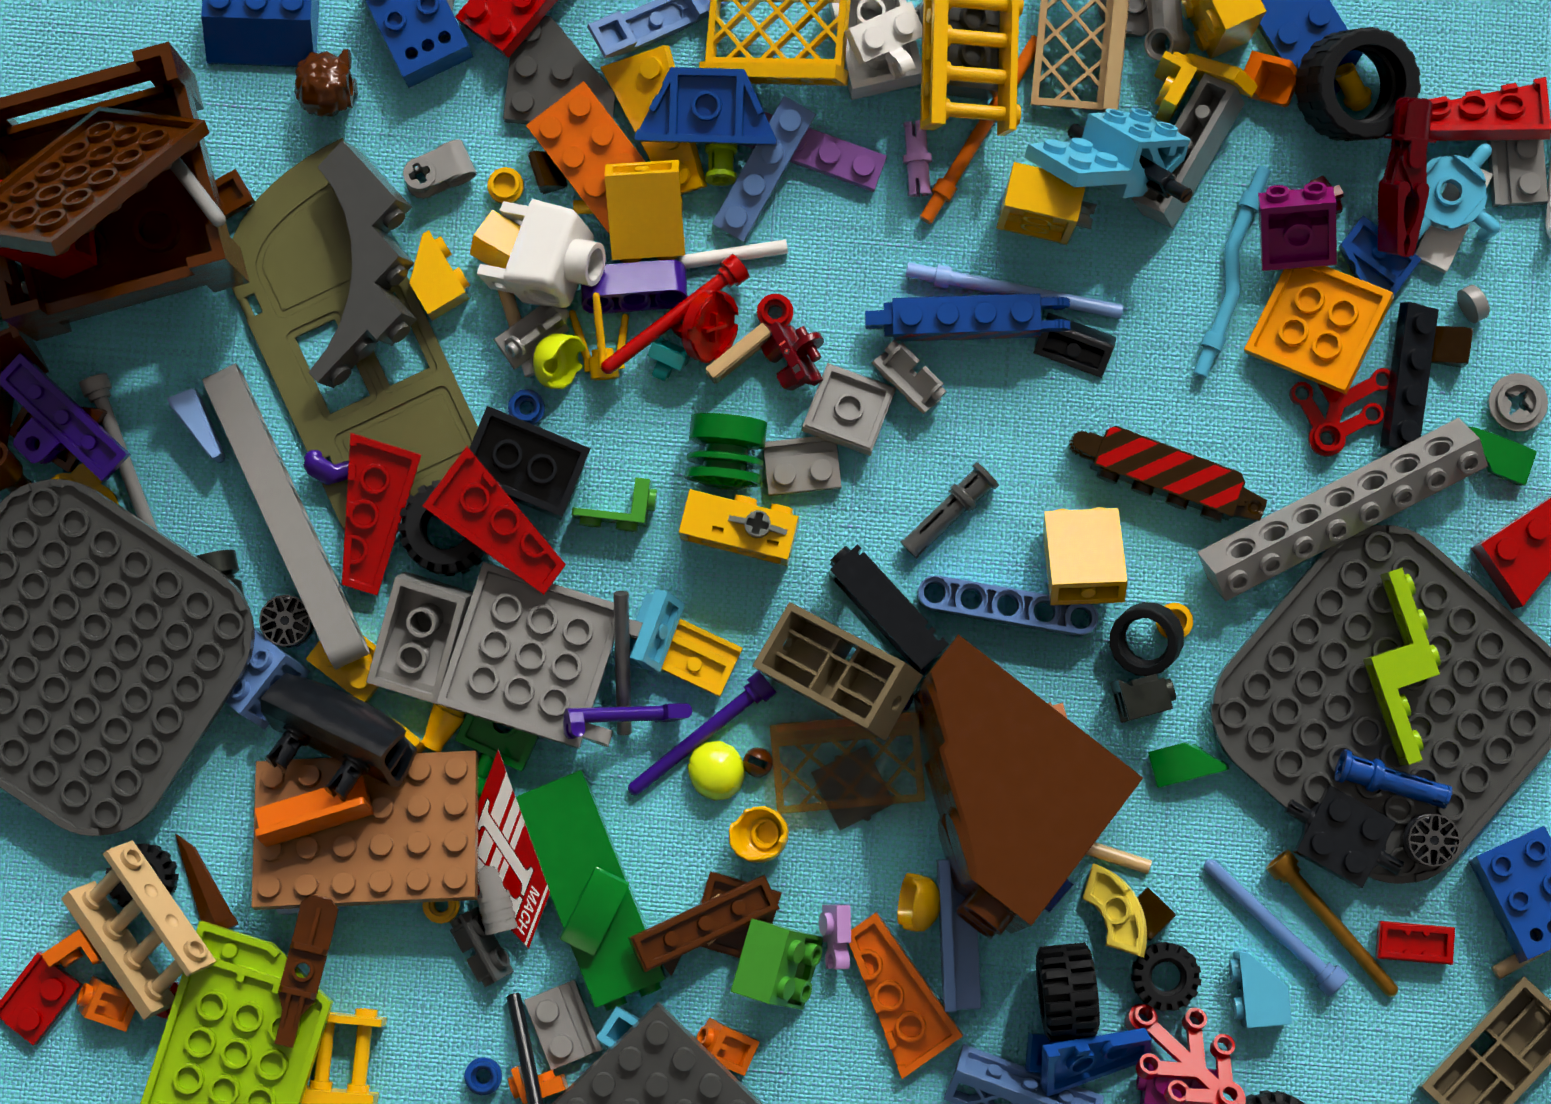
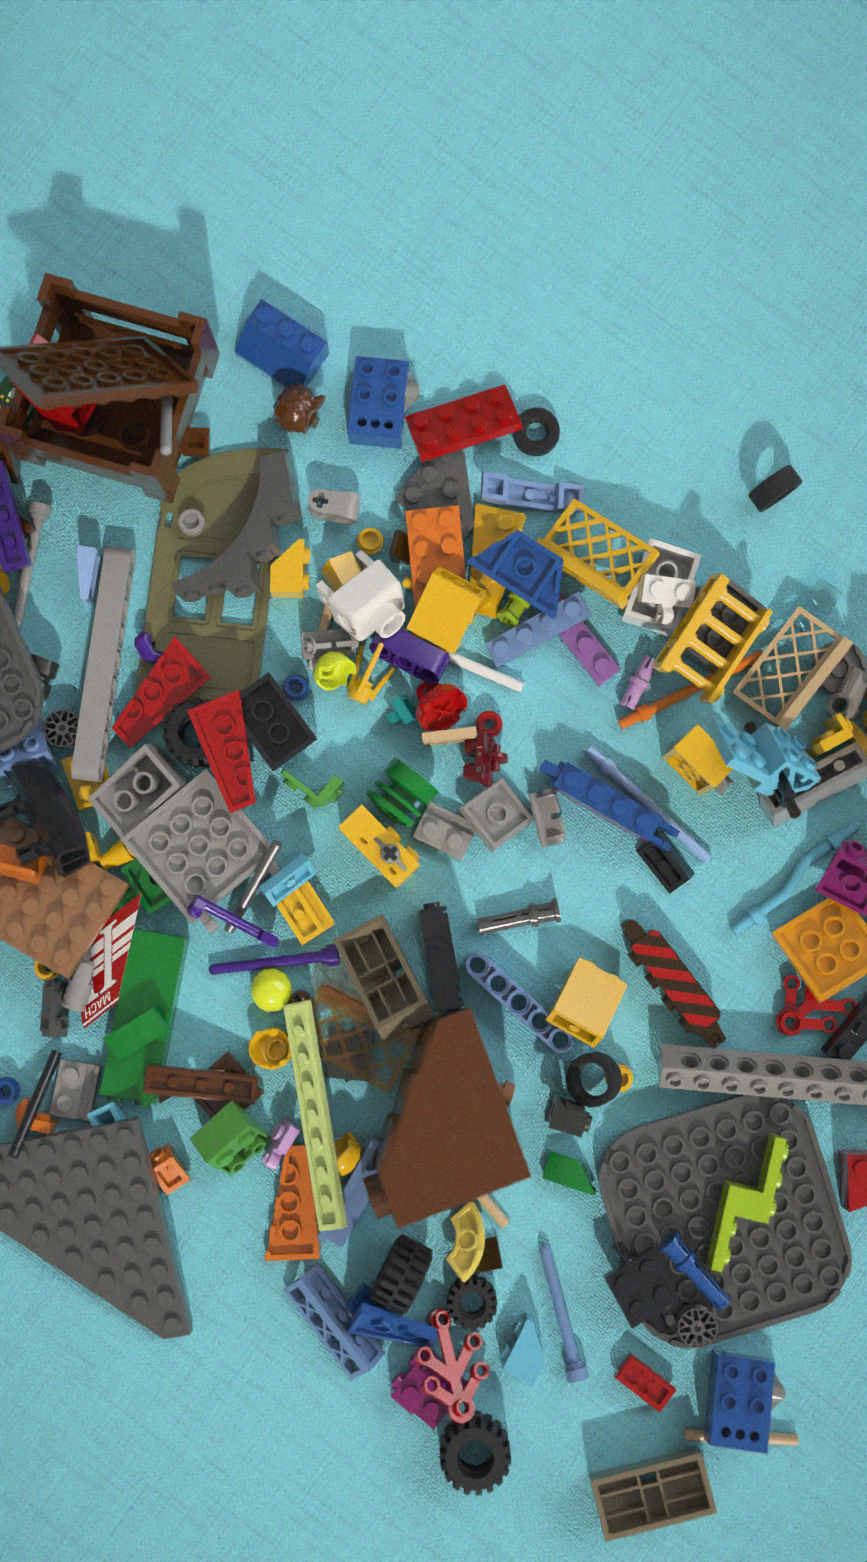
camera: 30 degrees right, 0 degrees up
(284, 291) = (191, 522): none -> light grey tile
(730, 273) = (474, 682): red piece -> none
(857, 875) = (315, 1116): none -> yellowish green tile
(1286, 869) = (591, 1281): pearl gold piece -> none

